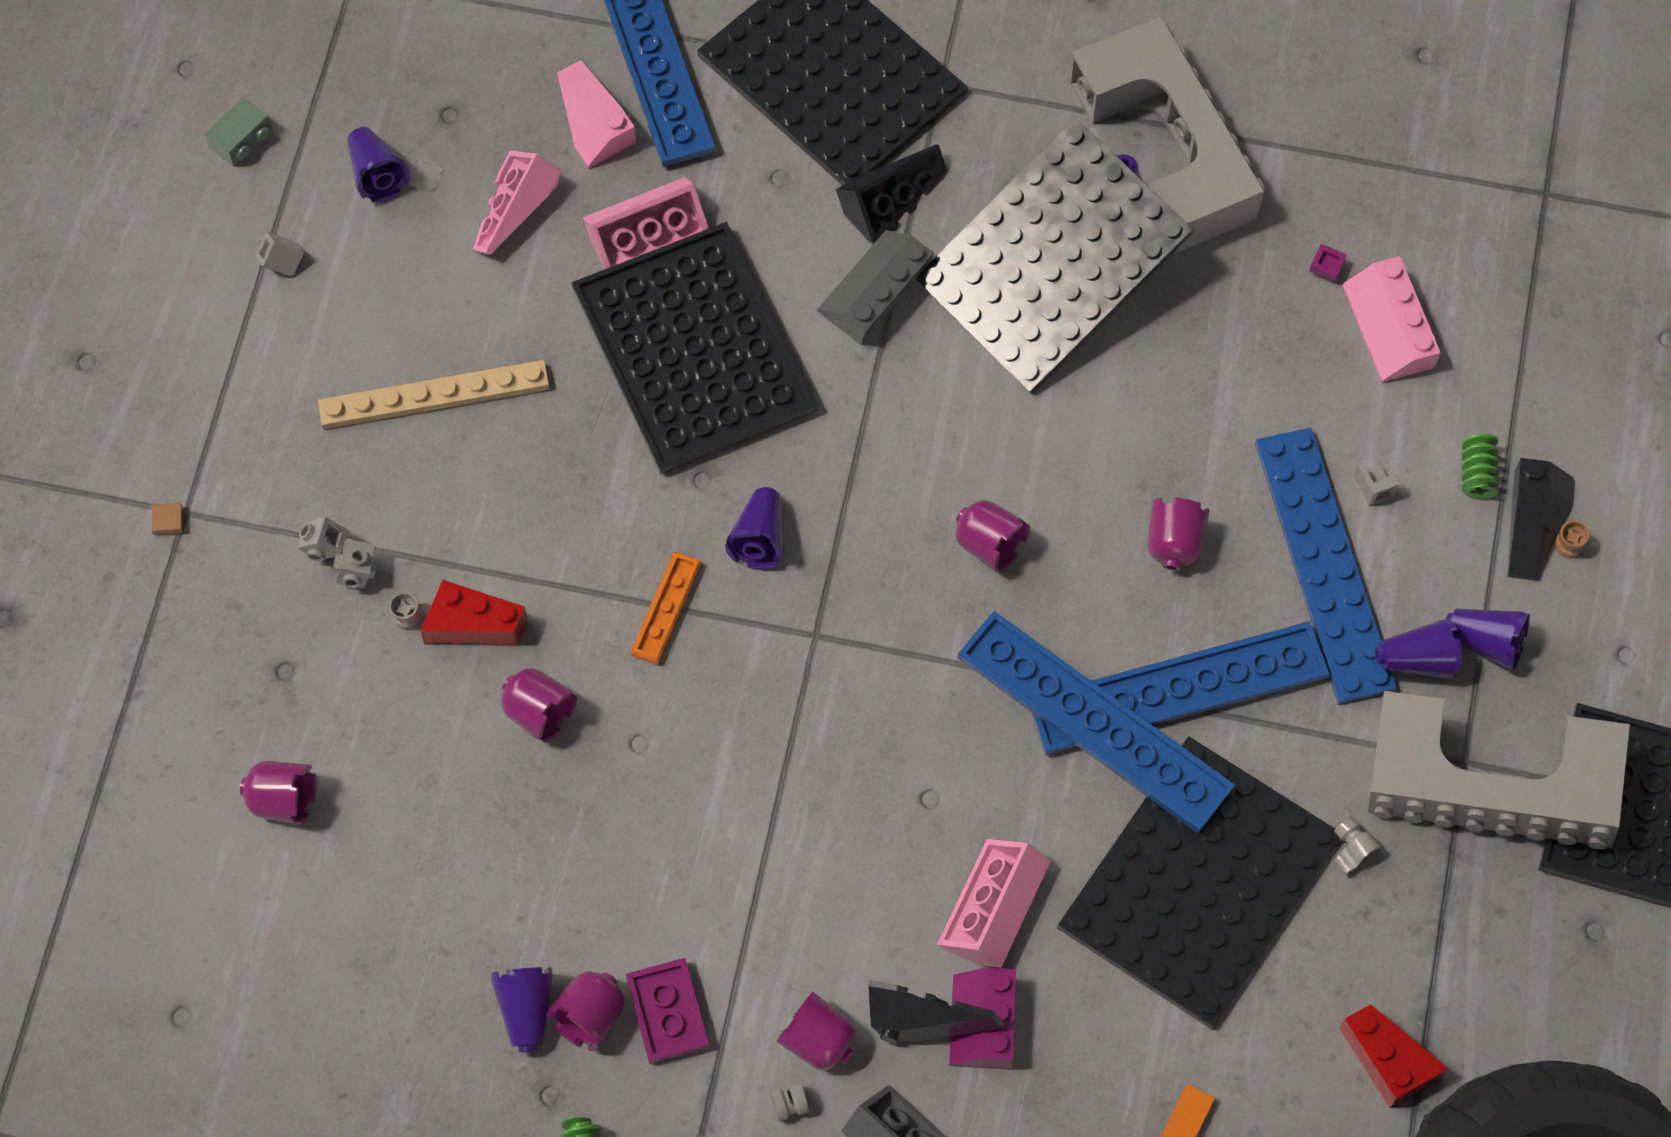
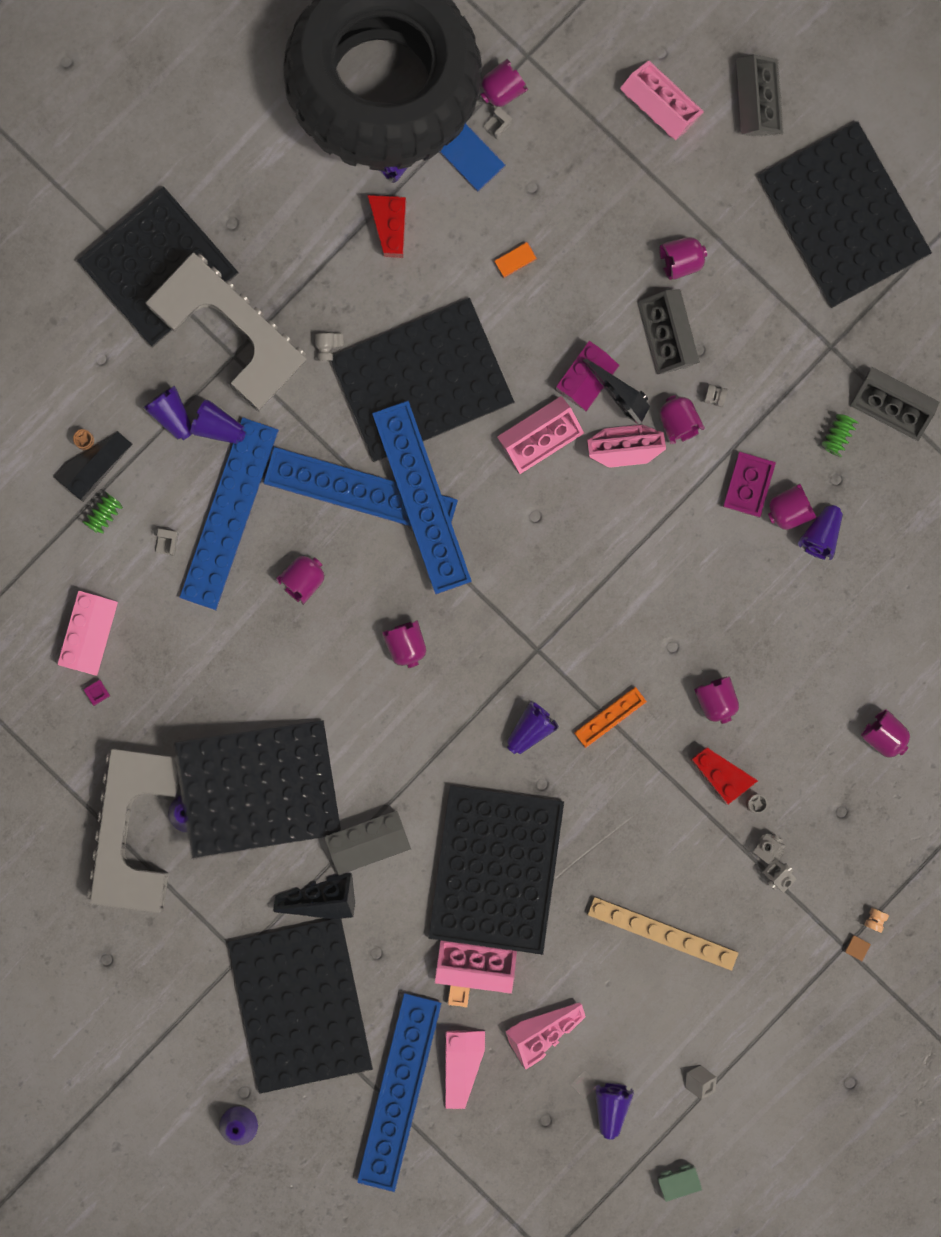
camera: 150 degrees left, 20 degrees up
(160, 562) = (876, 915): none -> light nougat wheel
(644, 180) = (458, 996): none -> light nougat plate
(876, 950) = (626, 445): none -> bright pink wedge

